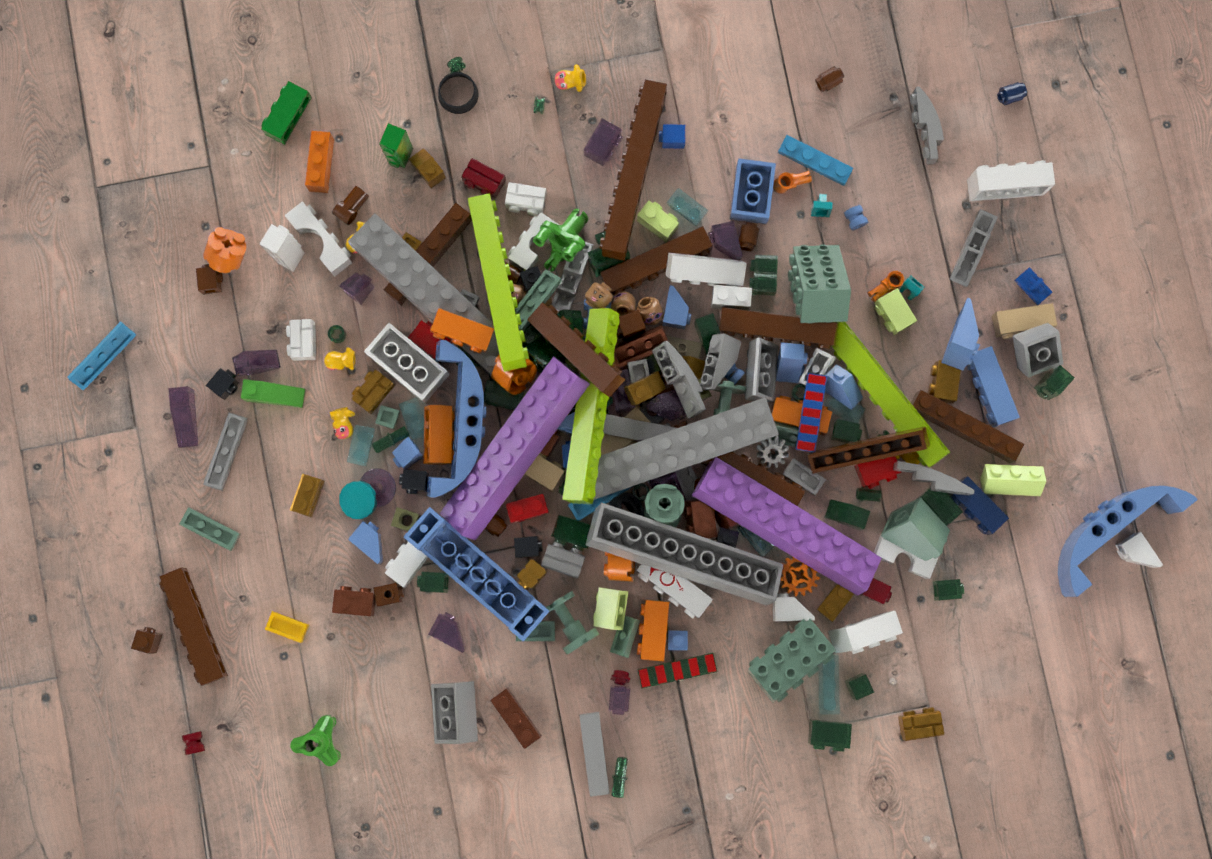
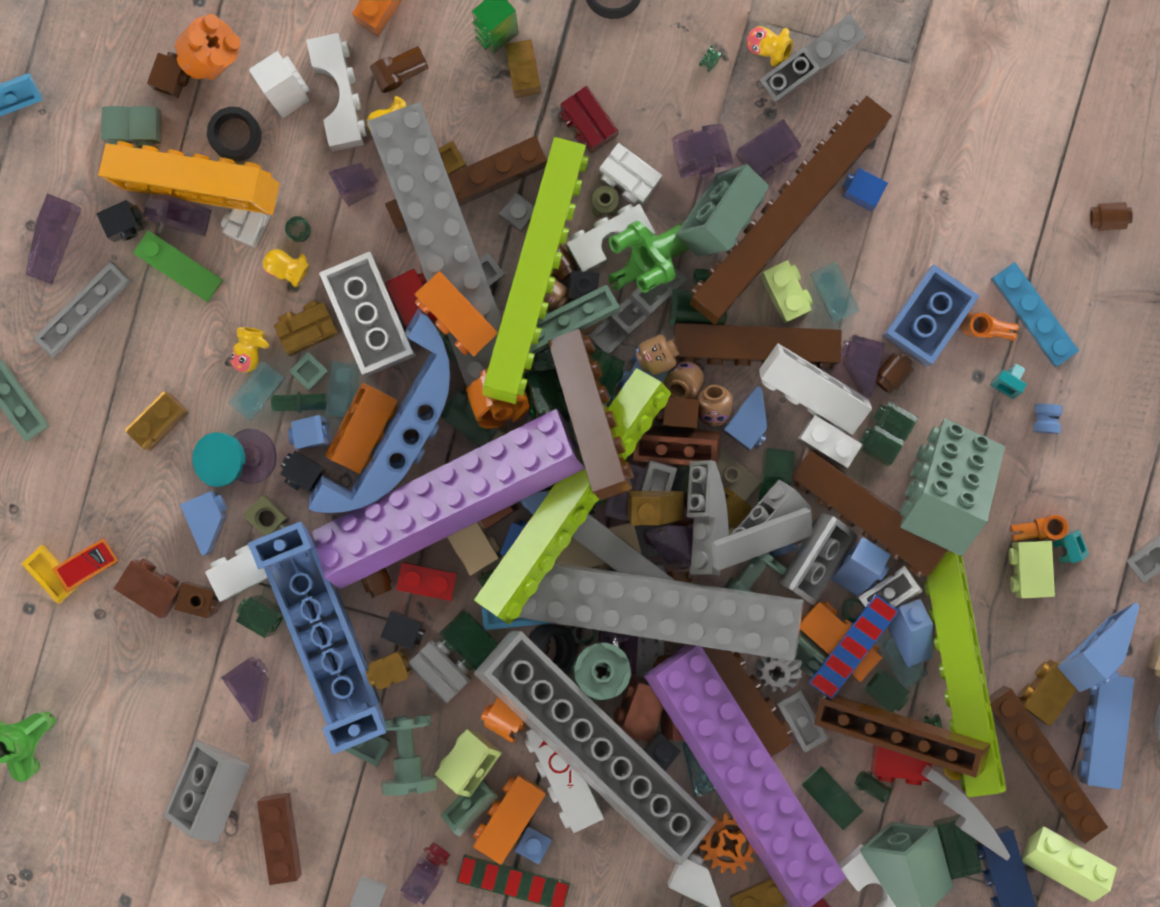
camera: 30 degrees right, 5 degrees up
(200, 322) = (131, 125): none -> sand green brick
(254, 333) = (189, 178): none -> light orange brick
(257, 285) = (226, 114): none -> black tyre
(306, 609) = (85, 565): none -> slope
(468, 255) = (517, 212): none -> light grey plate
(518, 227) = (600, 208): none -> olive brick
(562, 161) = (702, 151): none -> clear purple brick
(593, 190) = (723, 211): none -> sand green brick
(601, 74) = (813, 58): none -> light grey slope
(720, 373) = (761, 539): none -> light grey tile

